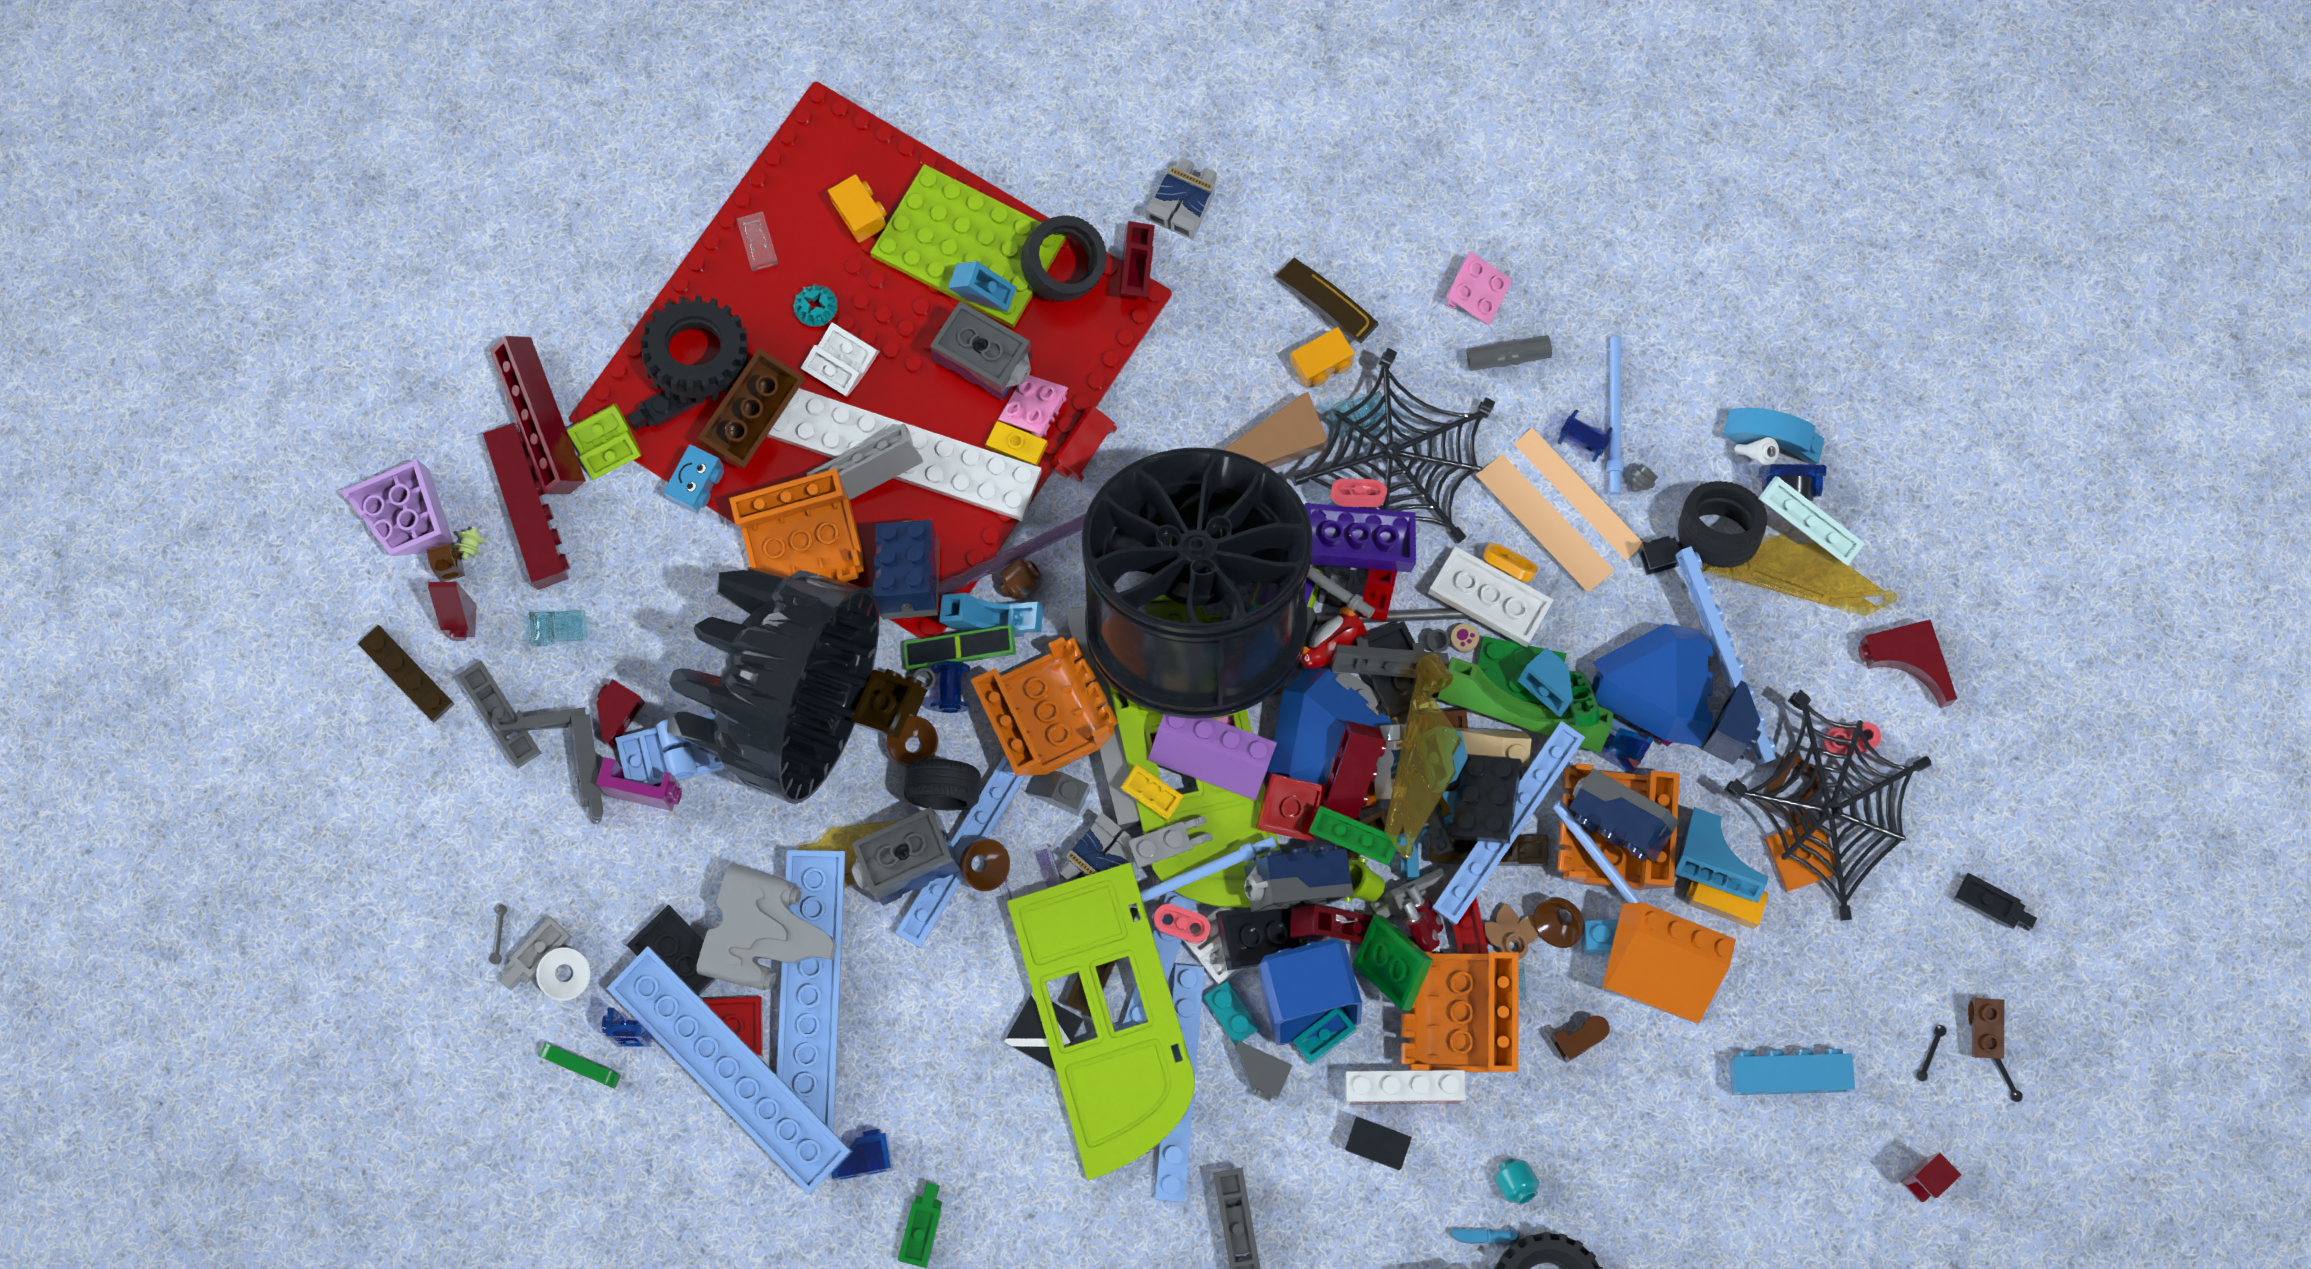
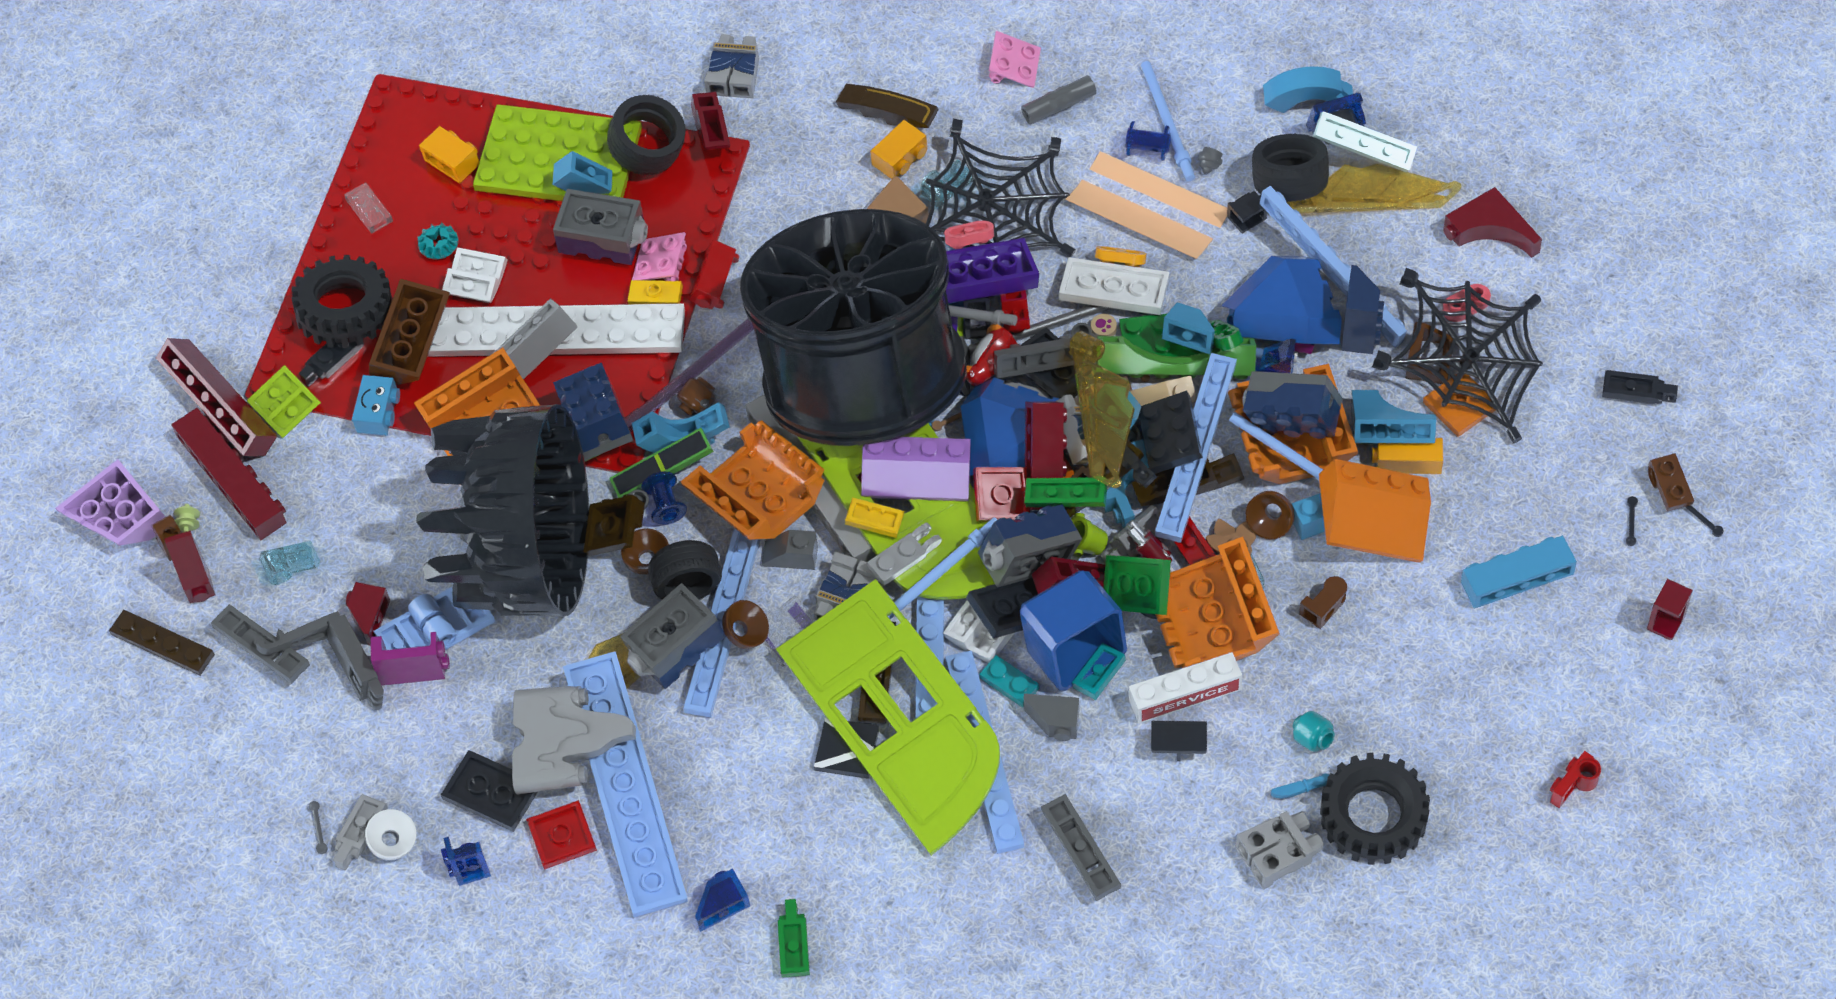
camera: 15 degrees left, 15 degrees down
(579, 1065) = (430, 908): green beam -> none
(729, 1070) = (573, 862): light blue plate -> none
(1181, 923) = (938, 617): coral plate -> none
(1763, 450) = (1299, 105): white cone -> none

